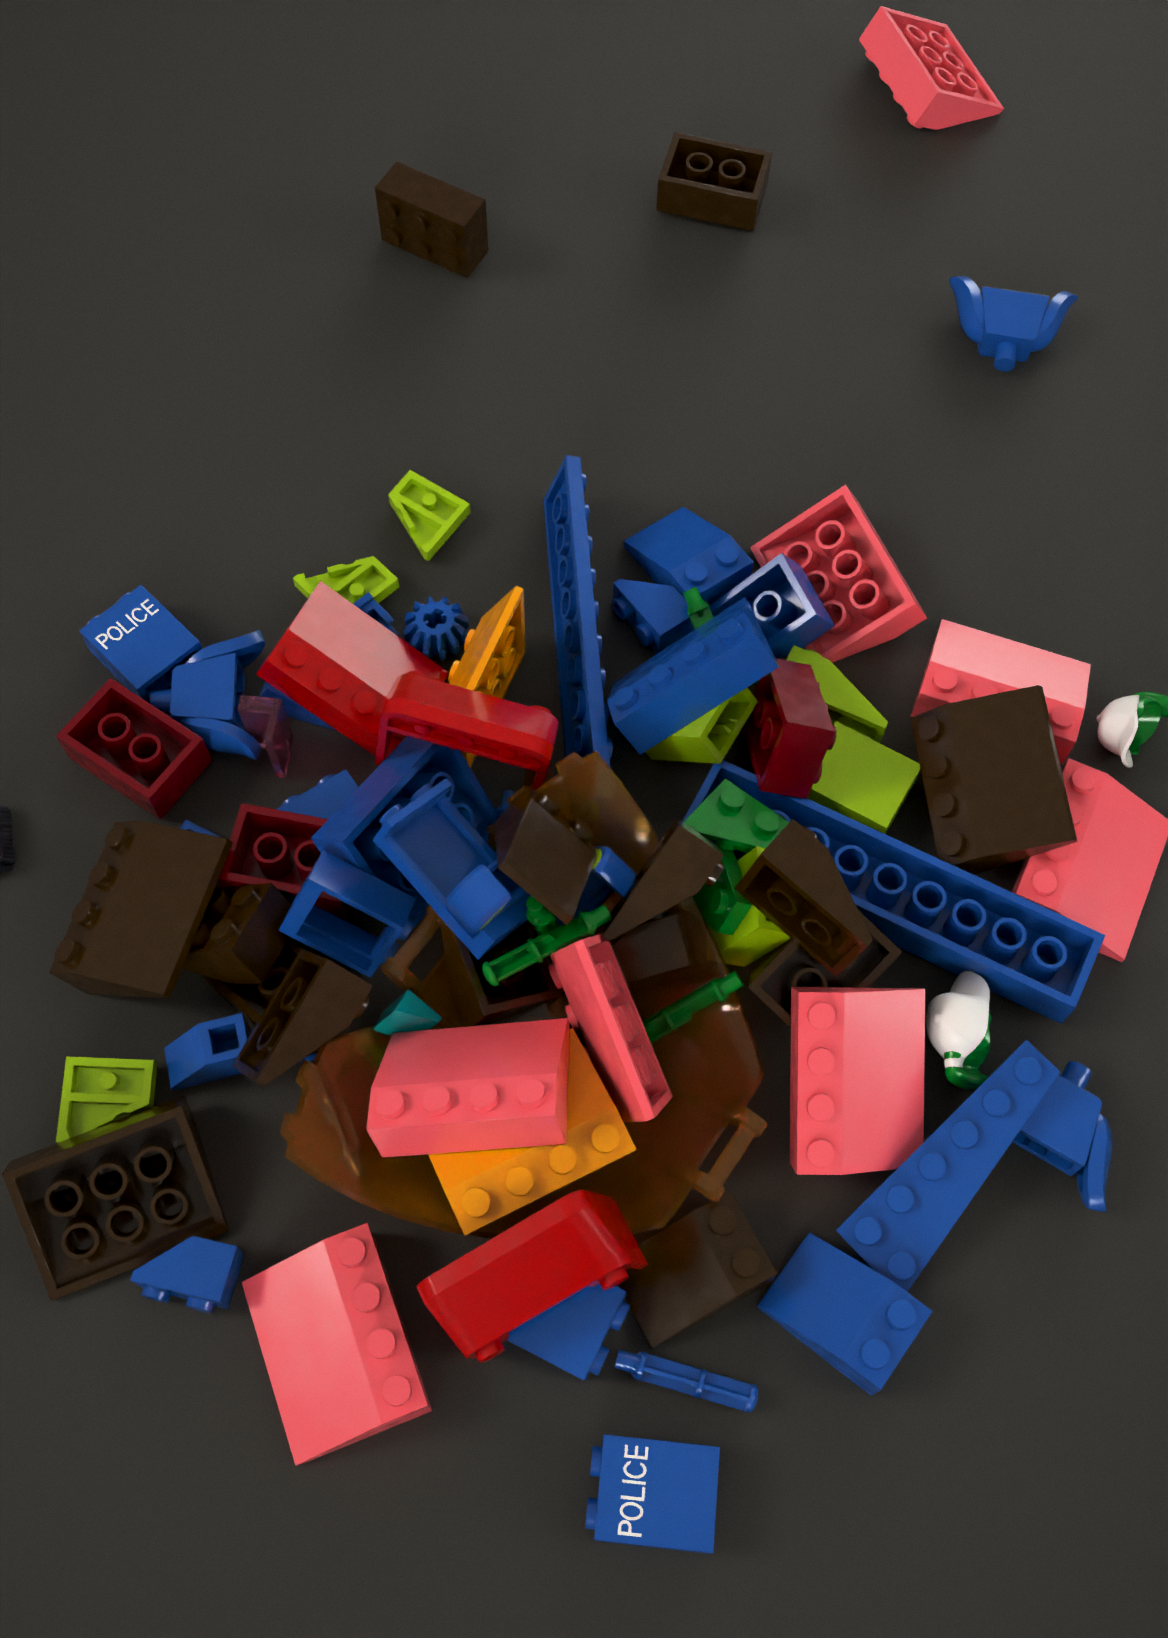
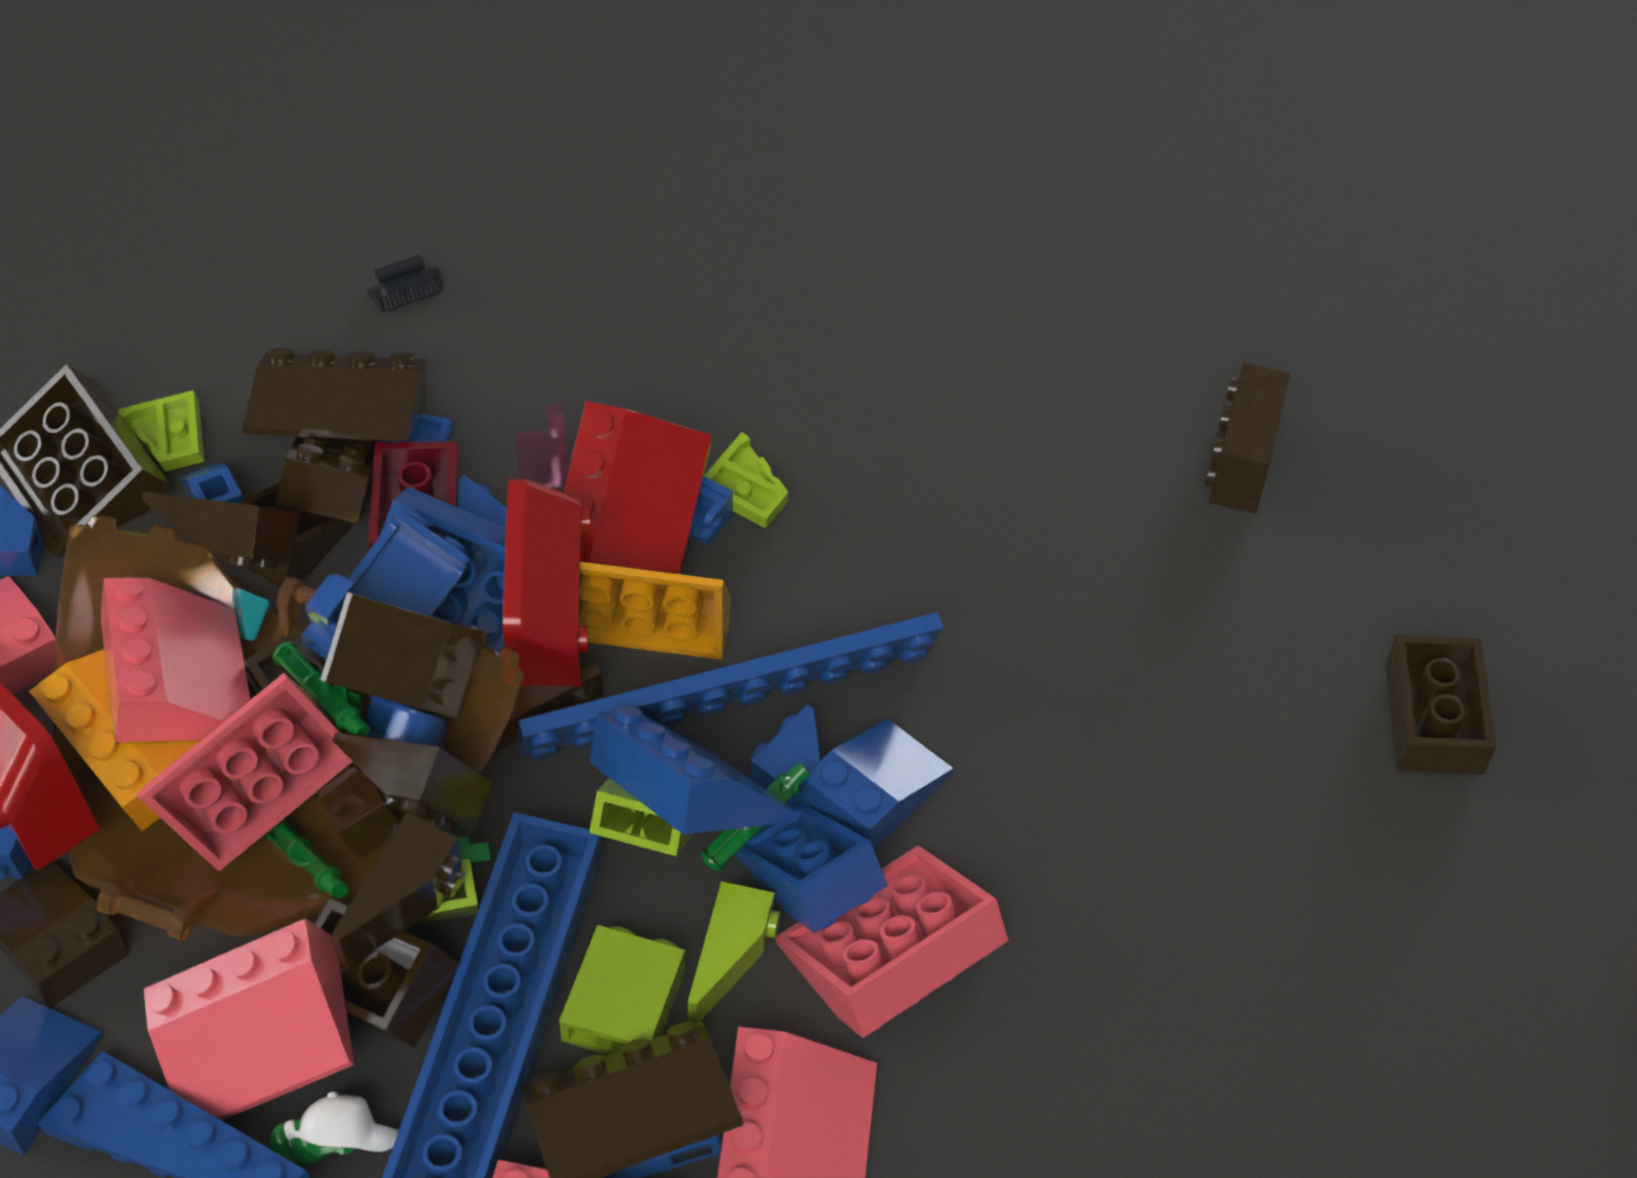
camera: 75 degrees right, 10 degrees down
(135, 748) = (510, 356): dark red brick -> none
(140, 642) = (630, 337): blue brick -> none
(208, 694) = (587, 381): blue torso -> none
(338, 937) = (346, 530): blue window -> none
(427, 512) = (863, 529): lime wing -> none
(436, 628) = (719, 560): blue gear -> none
(736, 819) = (514, 853): green wing -> none
(788, 730) = (645, 885): dark red brick -> none
(1008, 321) = (1354, 1081): blue torso -> none

